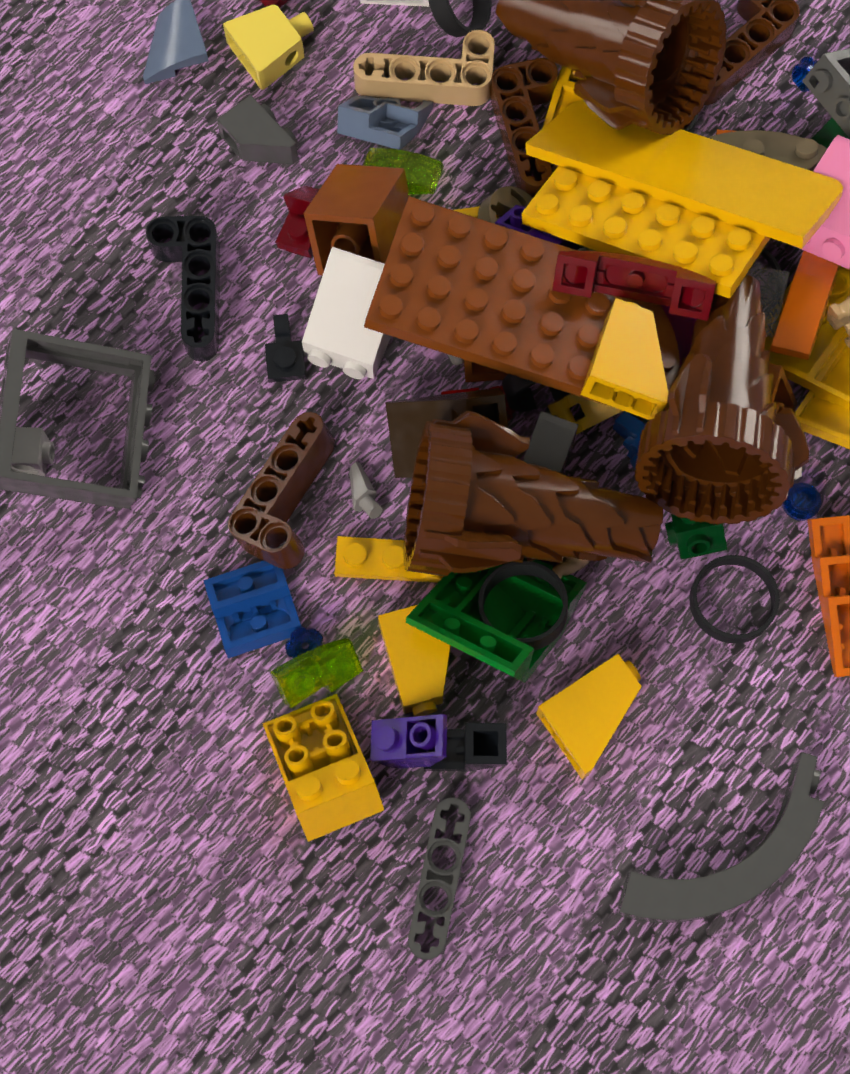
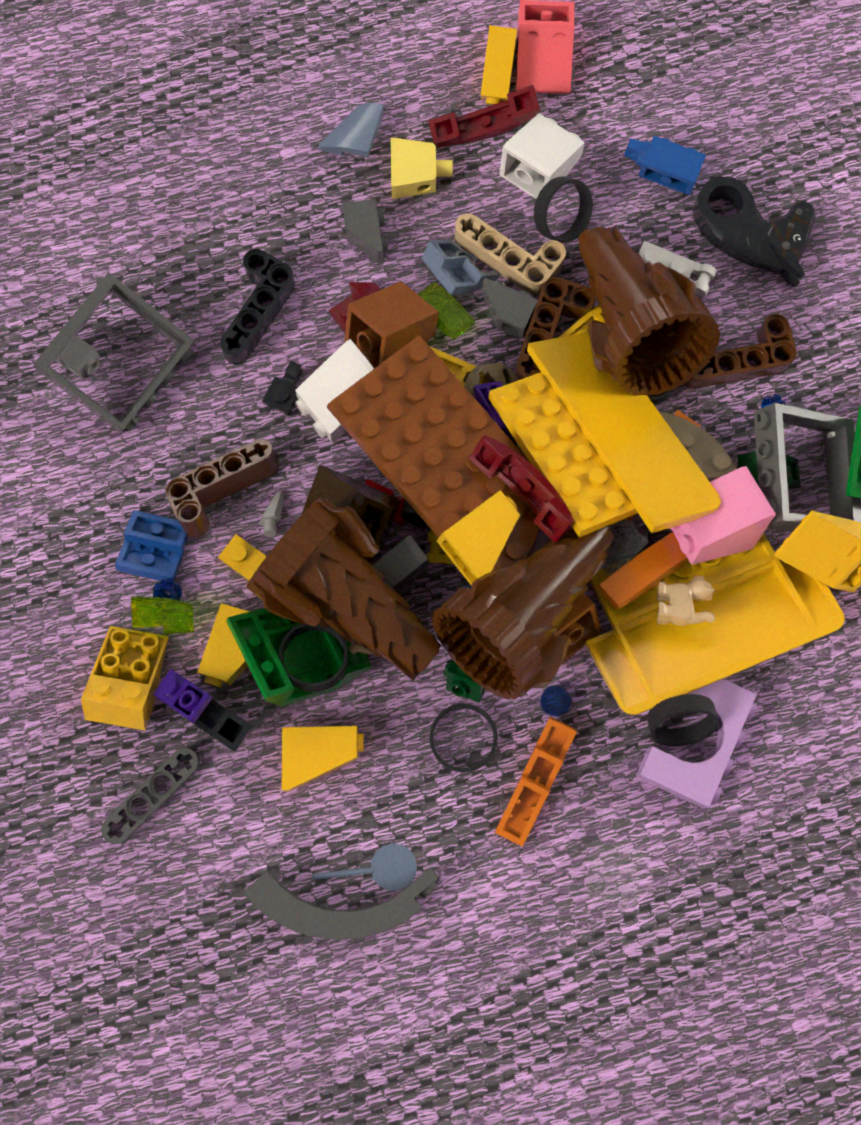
camera: 30 degrees right, 5 degrees up
(468, 129) = (508, 308): none -> dark grey slope
(753, 785) = (391, 868): none -> sand blue piece

